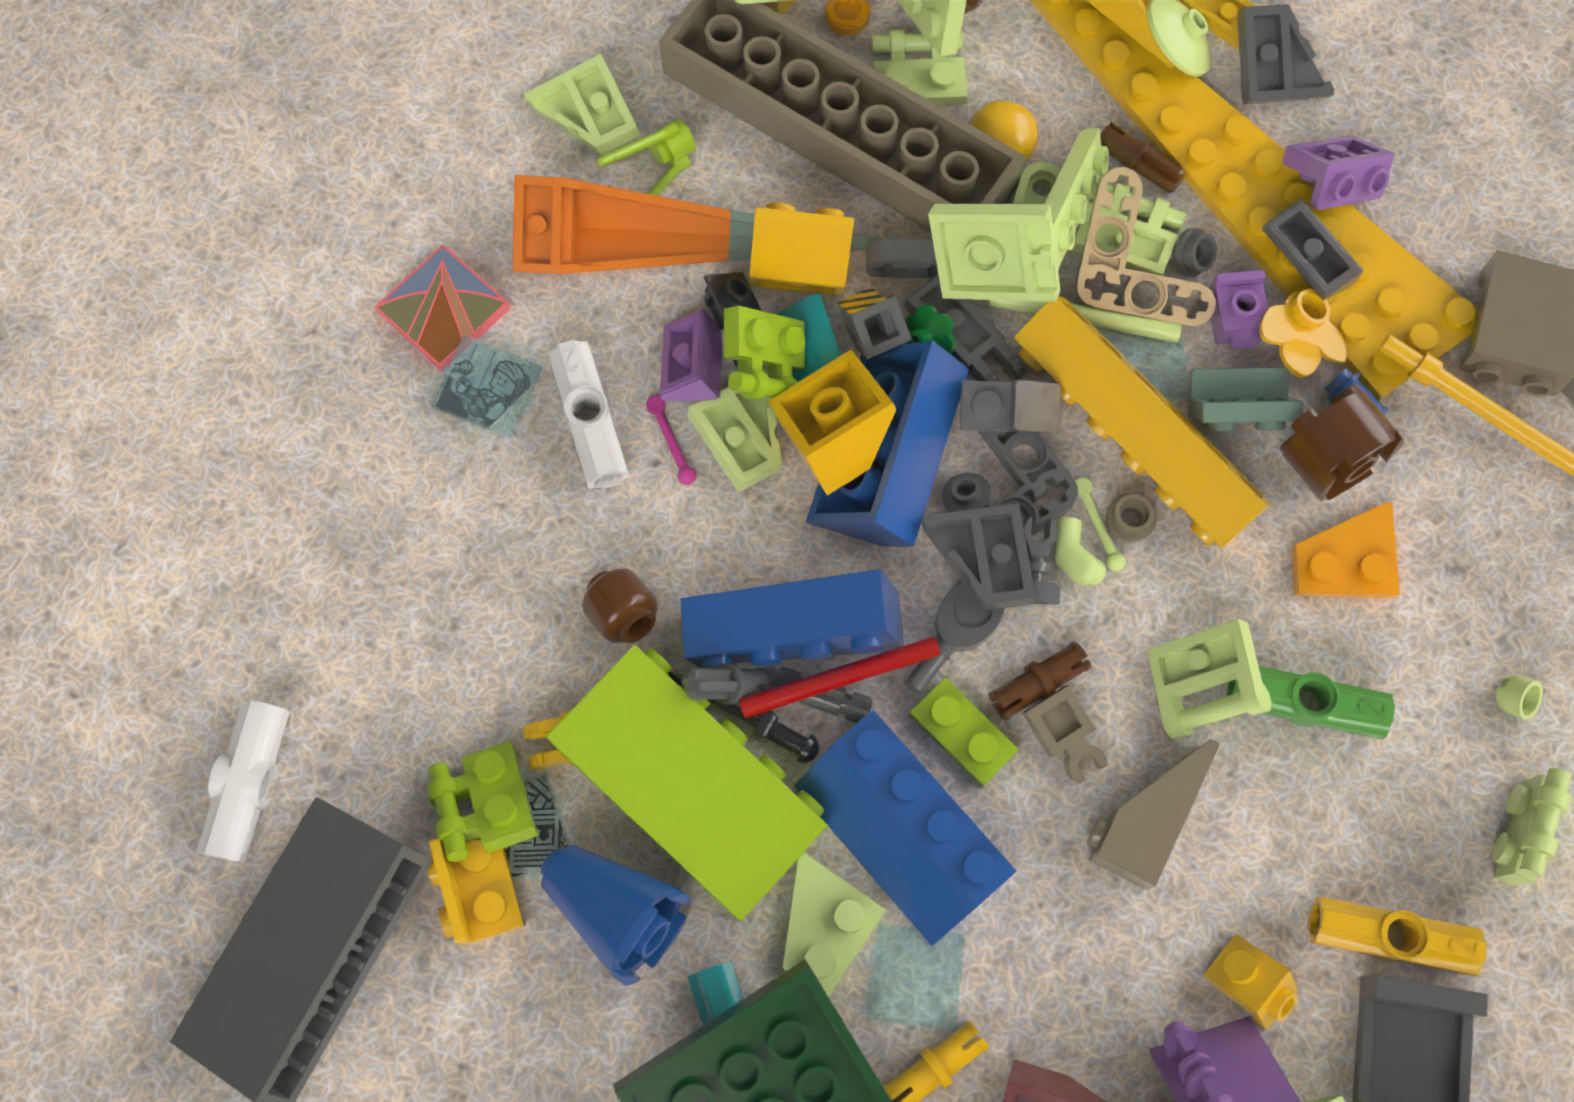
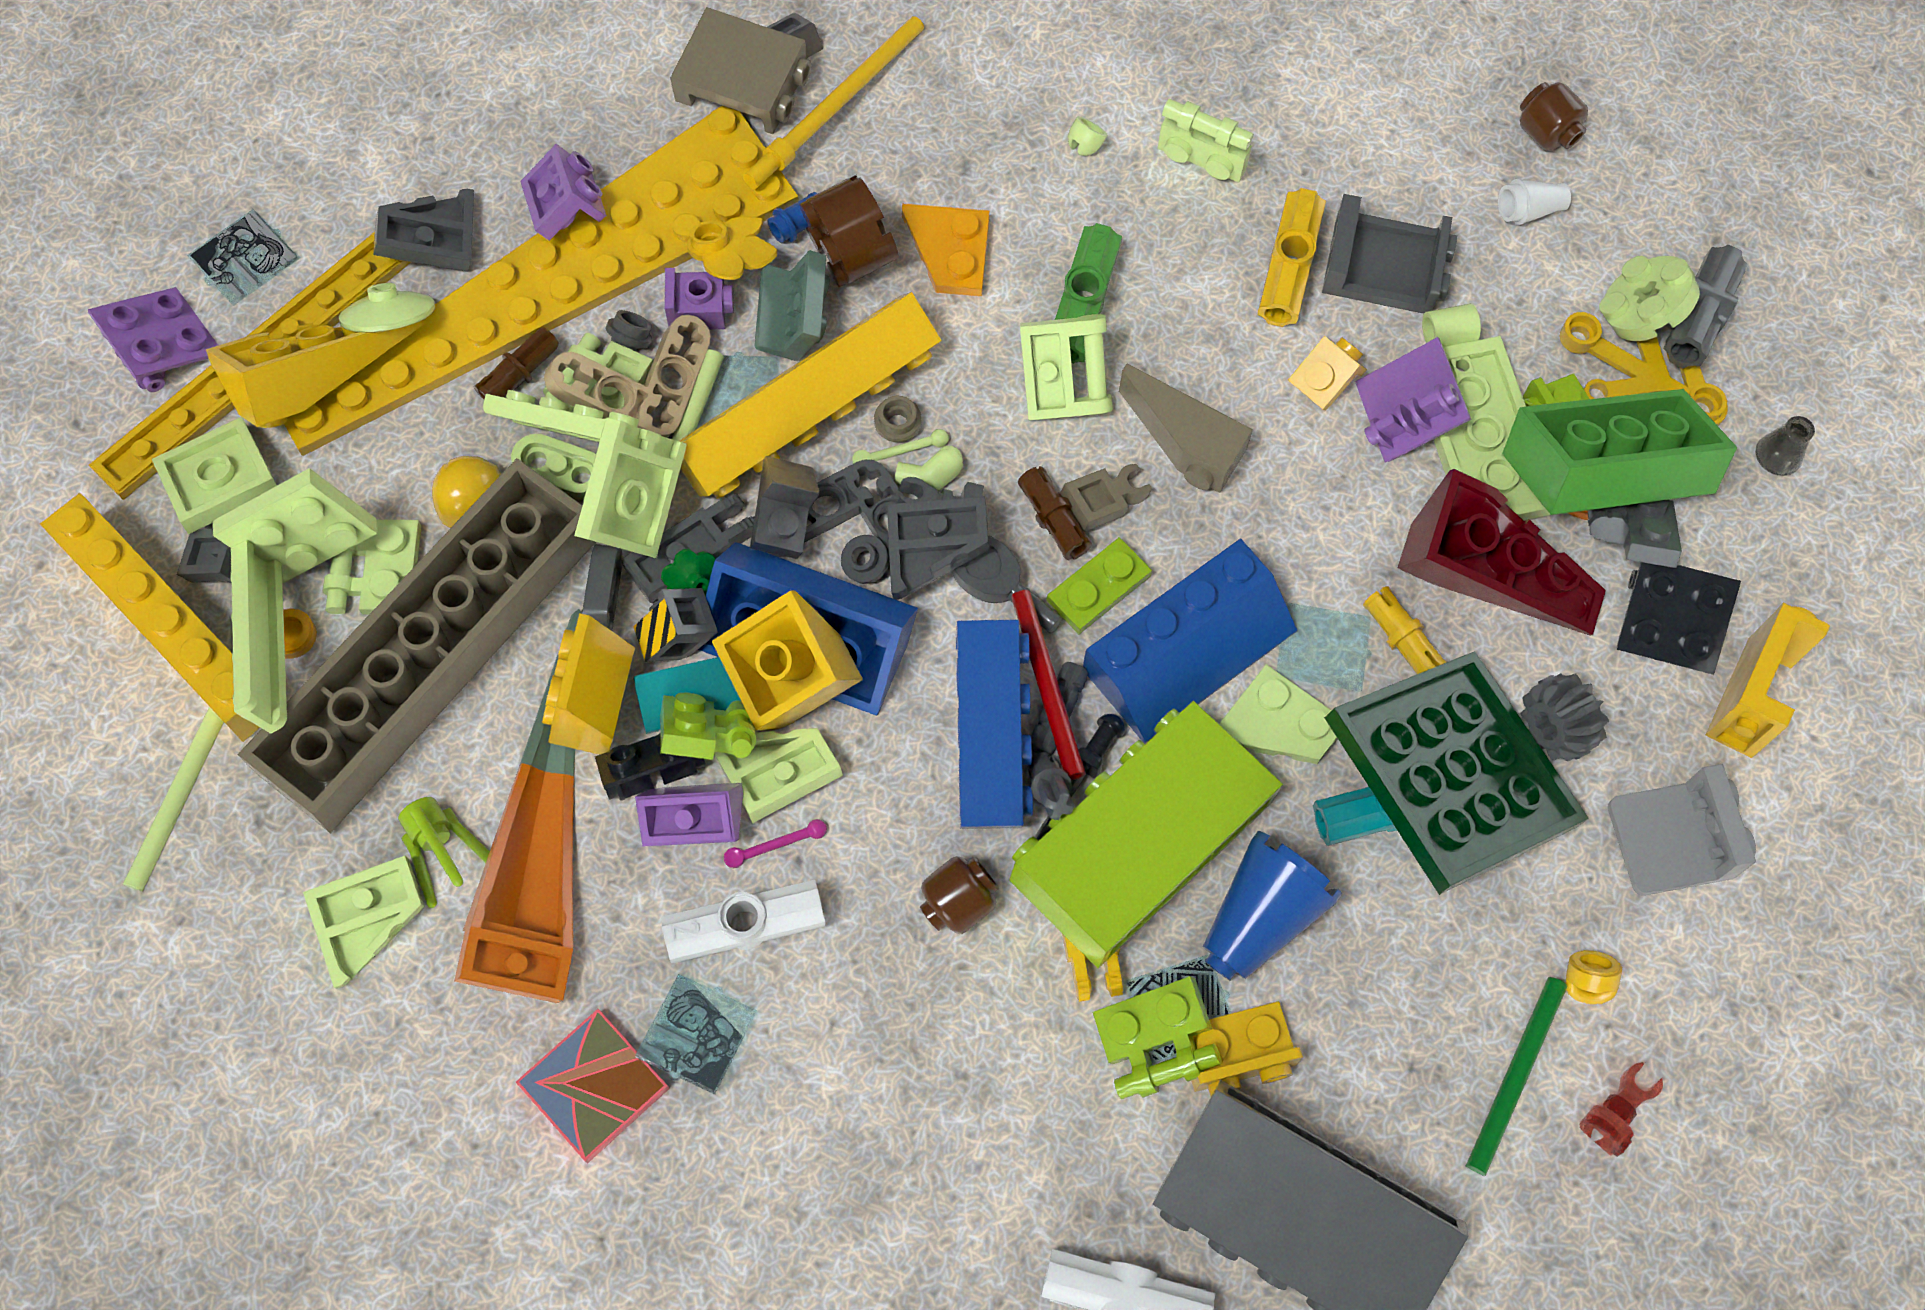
camera: 90 degrees left, 5 degrees down
(1313, 250) = (648, 225): flat silver slope -> none

